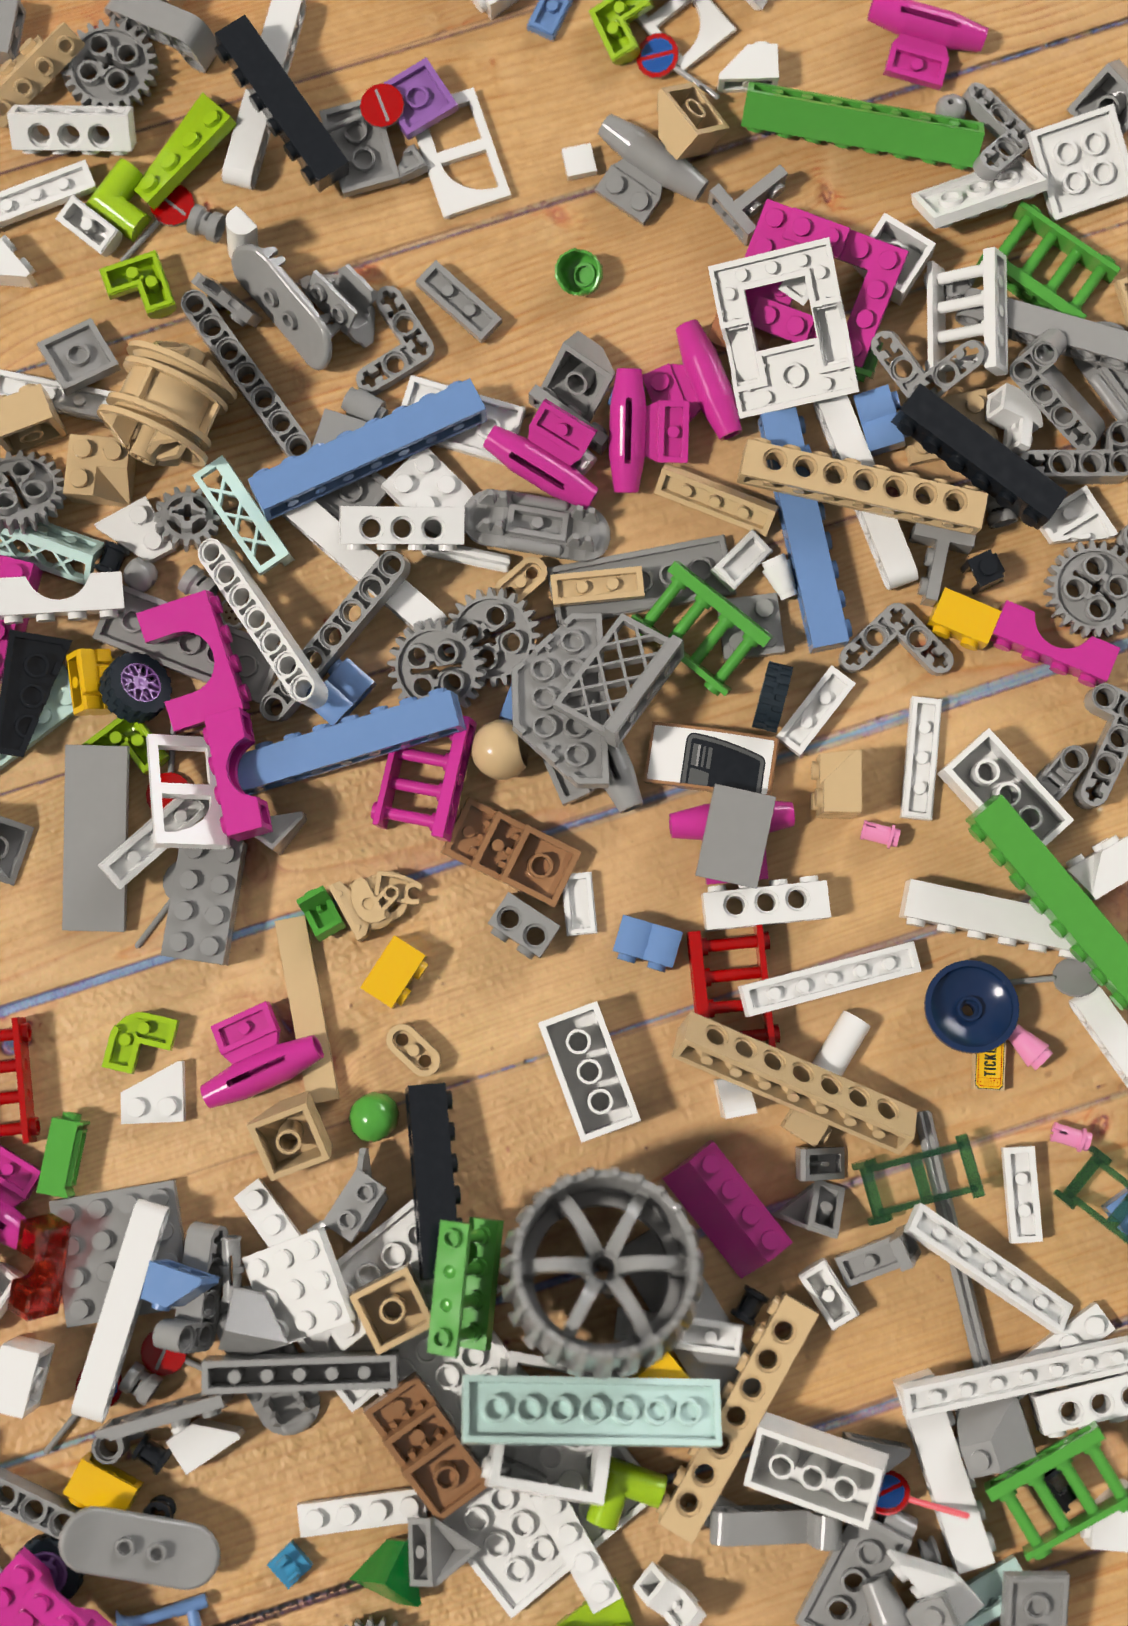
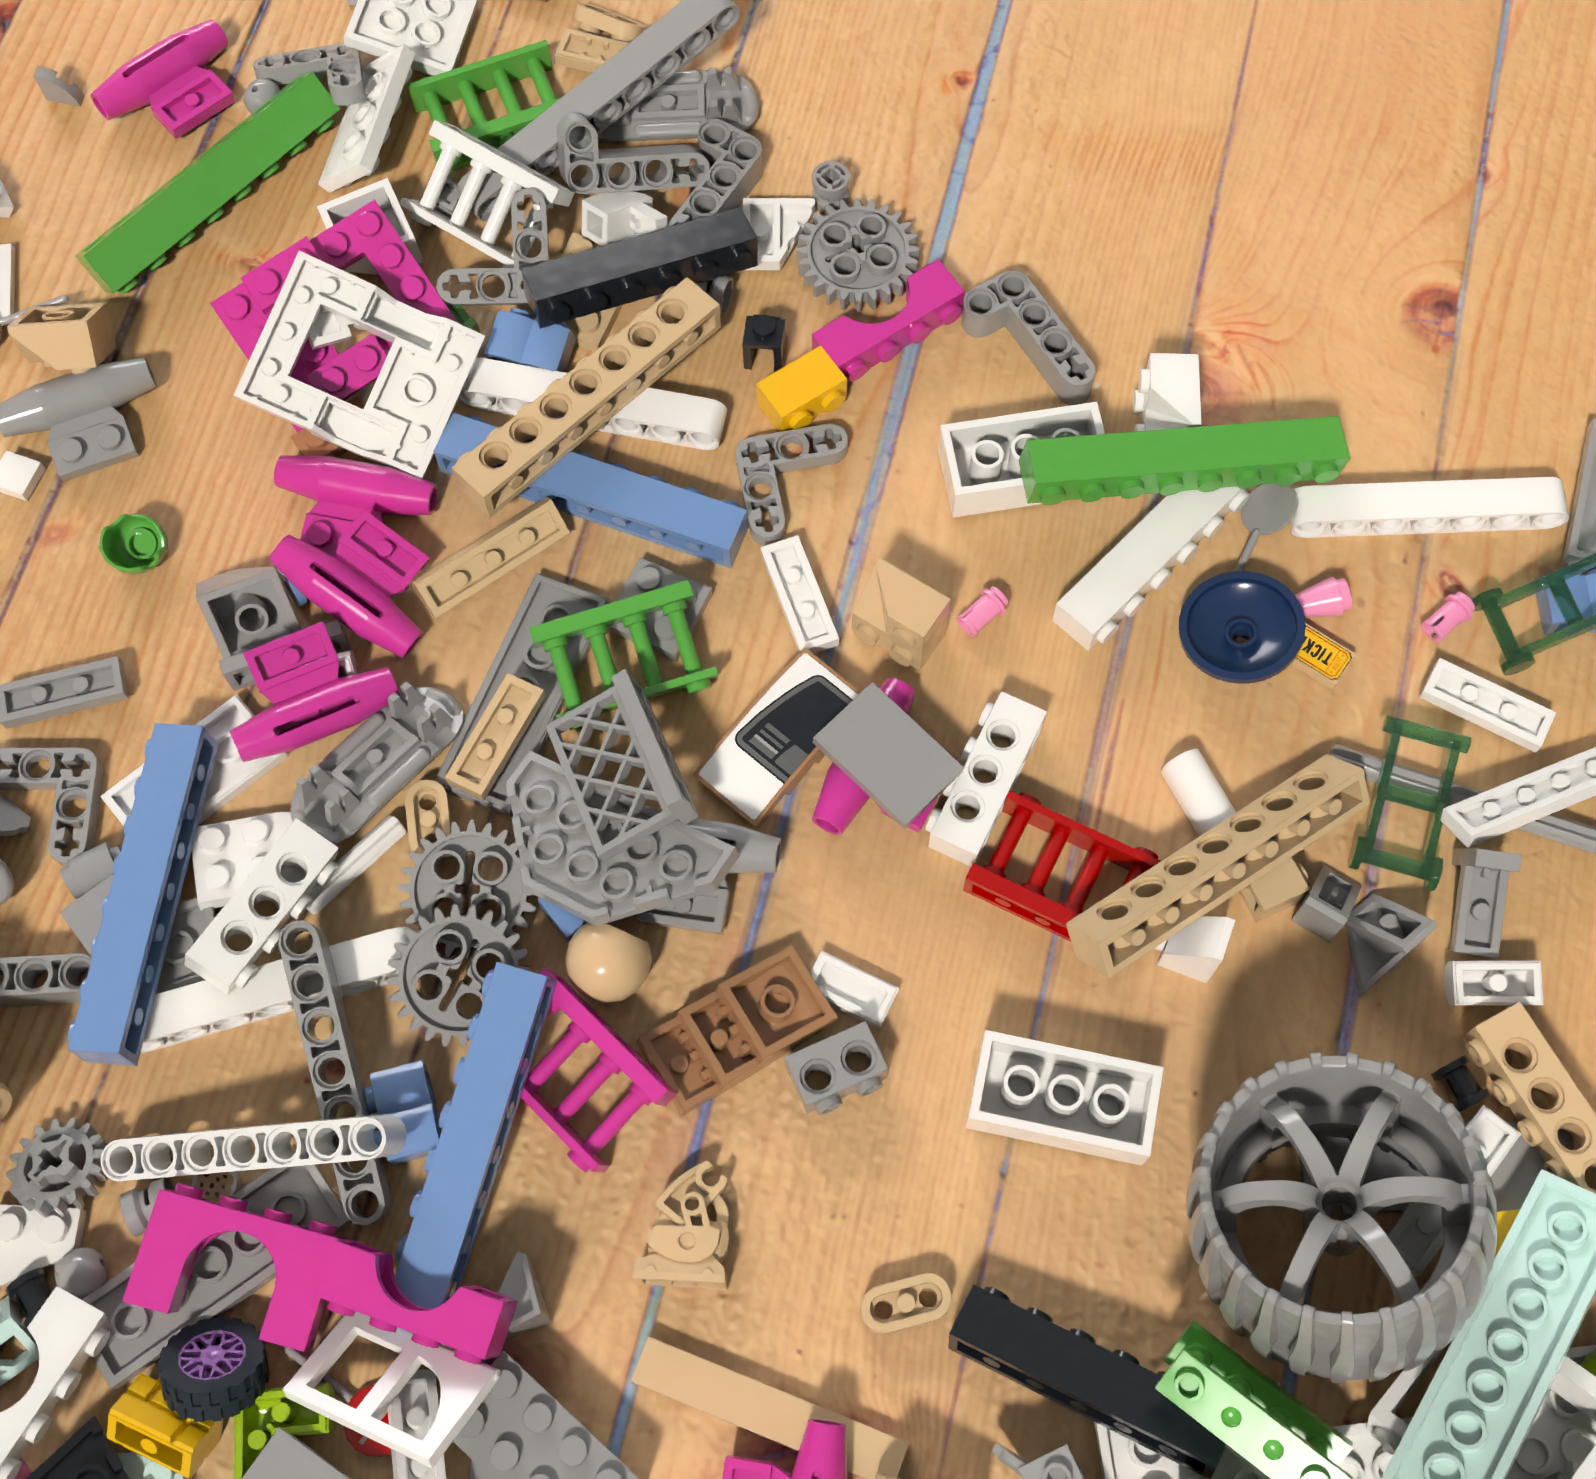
camera: 55 degrees left, 15 degrees down
(255, 515) = (112, 1081): light aqua fence -> none
(321, 913) = (659, 1312): bright green bracket -> none
(373, 1116) = (959, 1412): bright green hair -> none
(395, 972) = (794, 1265): yellow brick -> none
(647, 942) = (947, 936): medium blue brick -> none
(727, 1210) = (1367, 1020): dark pink slope -> none
(735, 212) = (203, 350): light grey bracket -> none
(741, 560) = (578, 571): white tile -> none
(754, 63) = (58, 243): white slope -> none
(772, 696) = (754, 623): black wheel -> none
(780, 576) = (624, 542): white cone -> none
(829, 979) = (1117, 759): white plate -> none
(921, 758) = (925, 524): white tile -> none
(935, 558) = (706, 365): light grey bracket -> none
(1058, 776) = (1034, 393): light grey piece -> none

